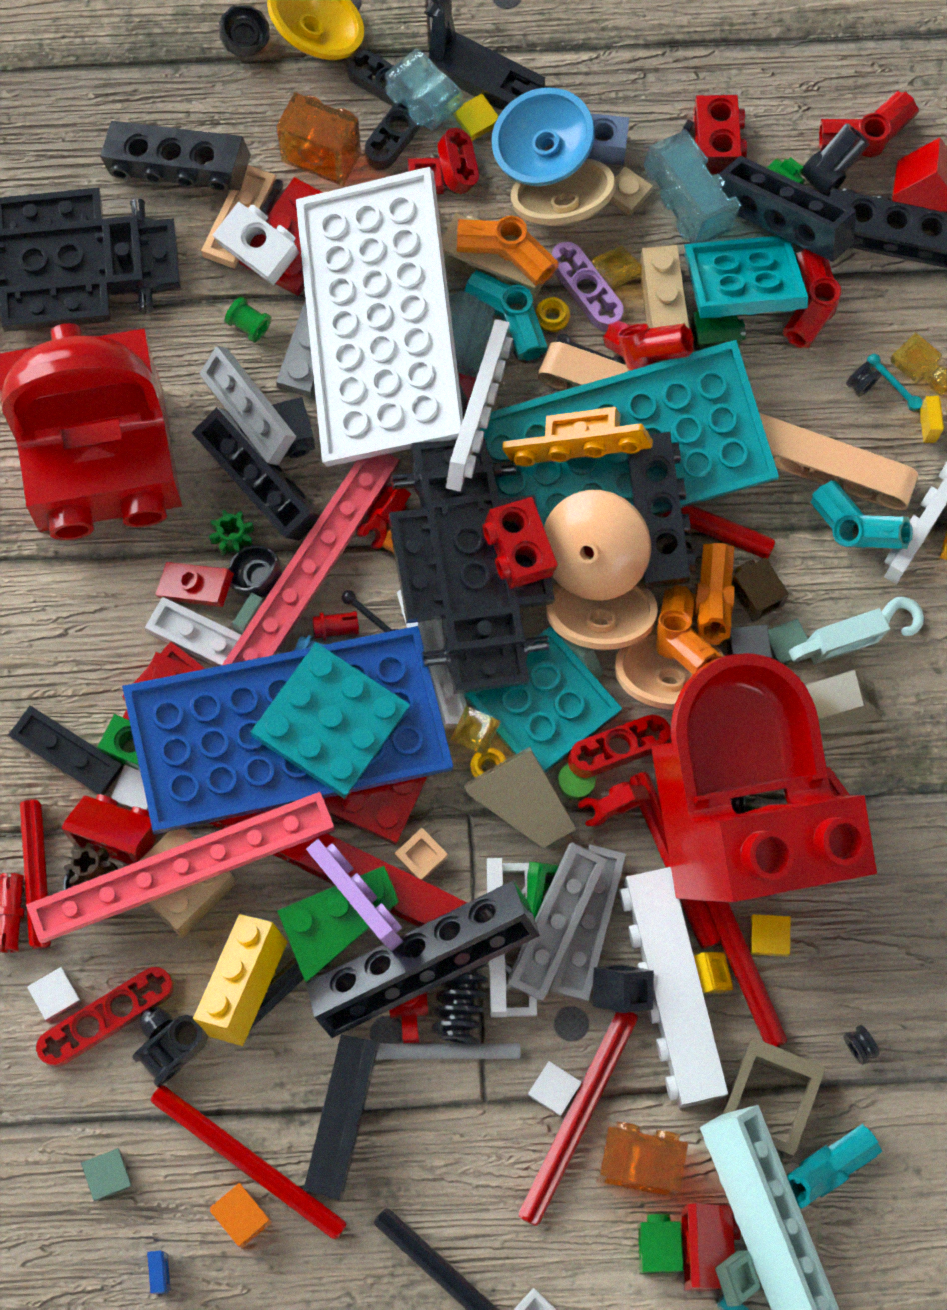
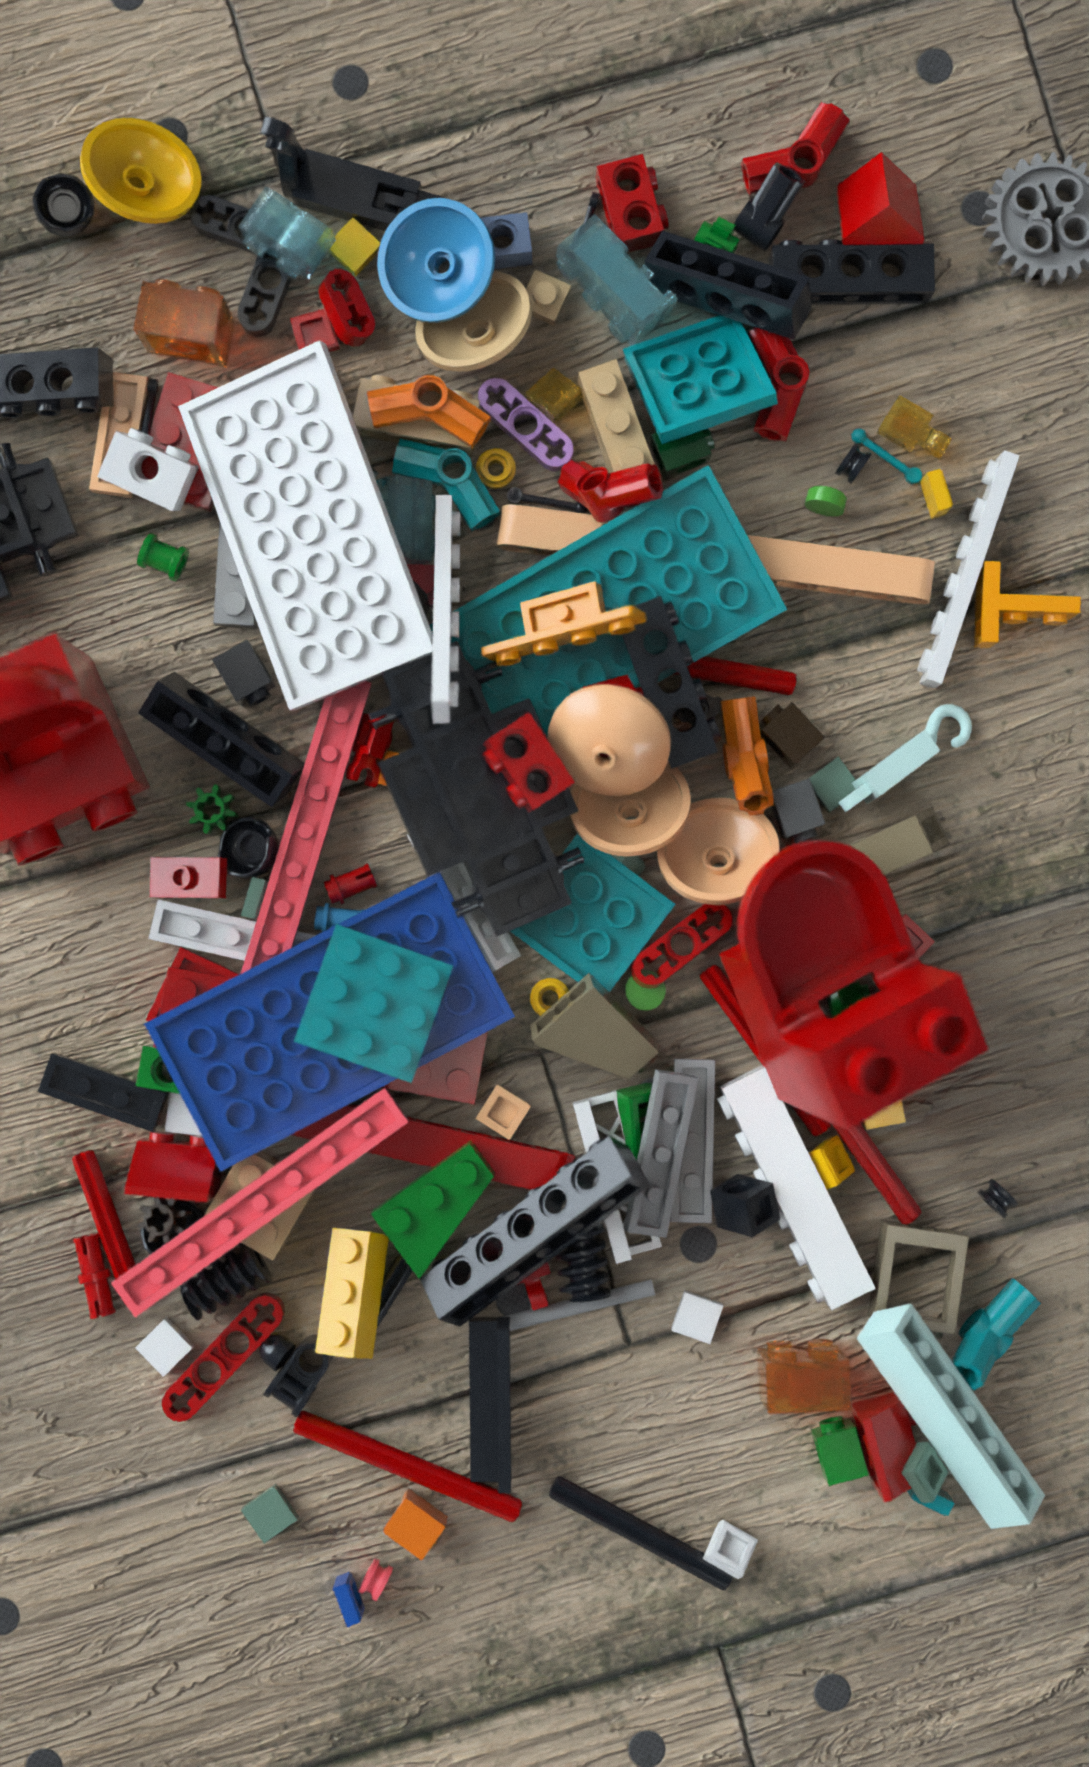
camera: 15 degrees left, 15 degrees up
(126, 940) = (223, 1280): none -> black piece
(188, 1261) = (375, 1579): none -> coral bush
(247, 405) = (190, 664): light grey plate -> none
(349, 597) = (356, 847): black hinge -> none
(357, 893) = (450, 1195): lavender plate -> none
(475, 730) = (528, 968): clear yellow plate -> none
(577, 1117) = (726, 1346): axle -> none
(621, 799) = (696, 1005): red plate -> none
(674, 633) = (730, 824): orange piece -> none
(832, 404) = (825, 501): none -> bright green tile
(843, 514) = (901, 643): teal piece -> none

